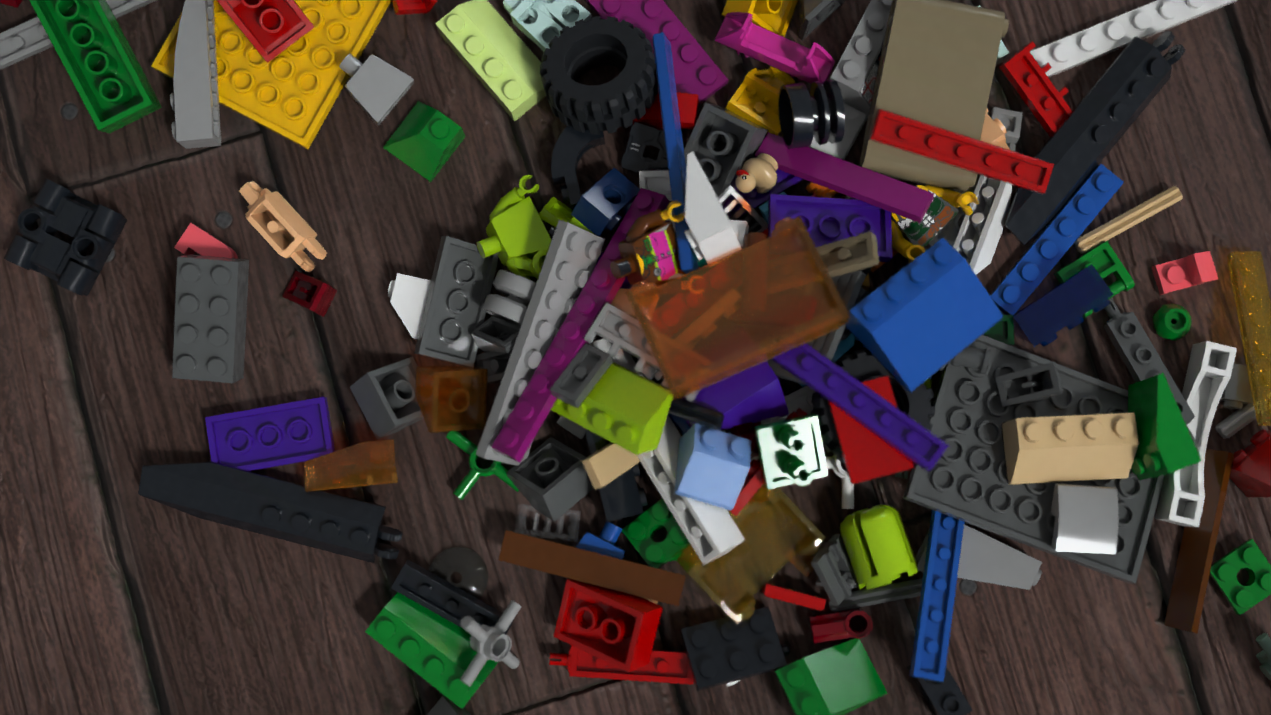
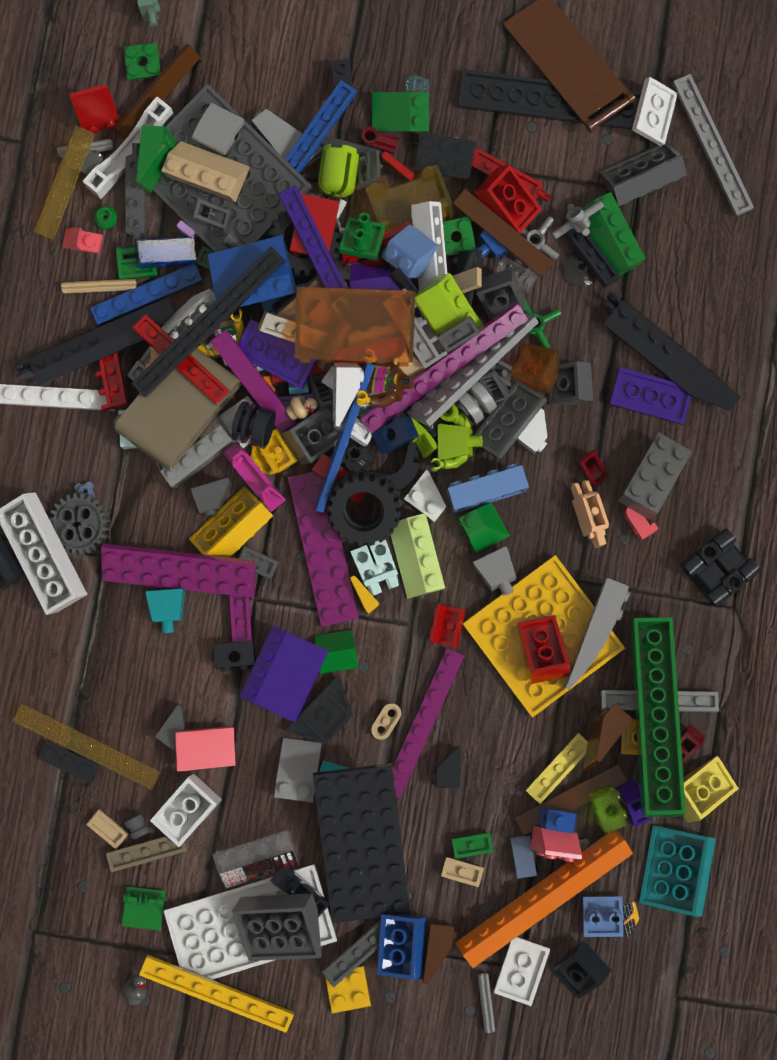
camera: 155 degrees left, 0 degrees up
(353, 467) = (612, 354): clear orange slope -> none
(441, 187) = (487, 489): none -> medium blue brick
(523, 144) = (426, 497): none -> white wing
(538, 597) = (539, 234): none -> light grey bar
(949, 213) = (208, 322): none -> black plate
(1050, 354) = (186, 230): none -> lavender tile

